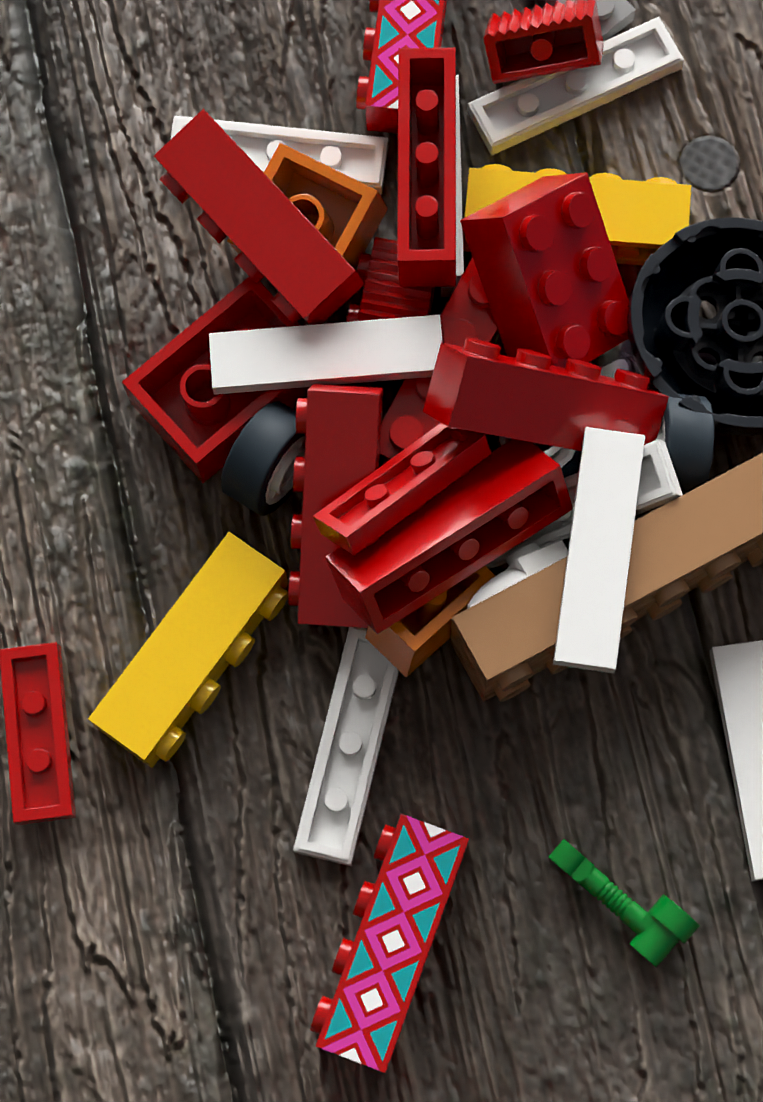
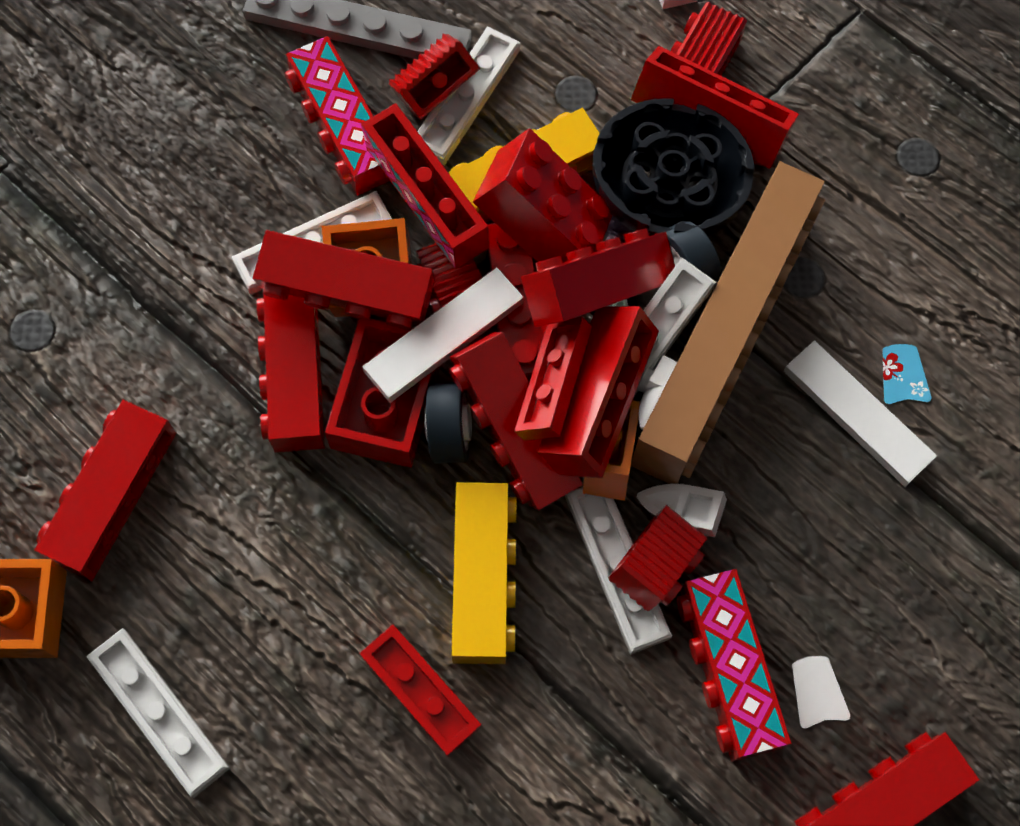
camera: 40 degrees left, 5 degrees down
(143, 294) = (292, 374): none -> red brick
(392, 768) = (658, 559): none -> red brick
(472, 731) = (695, 504): none -> white plate
(472, 1039) = (818, 692): none -> white sticker
(599, 550) = (697, 342): white tile -> none
(655, 930) = (876, 548): green brick -> none

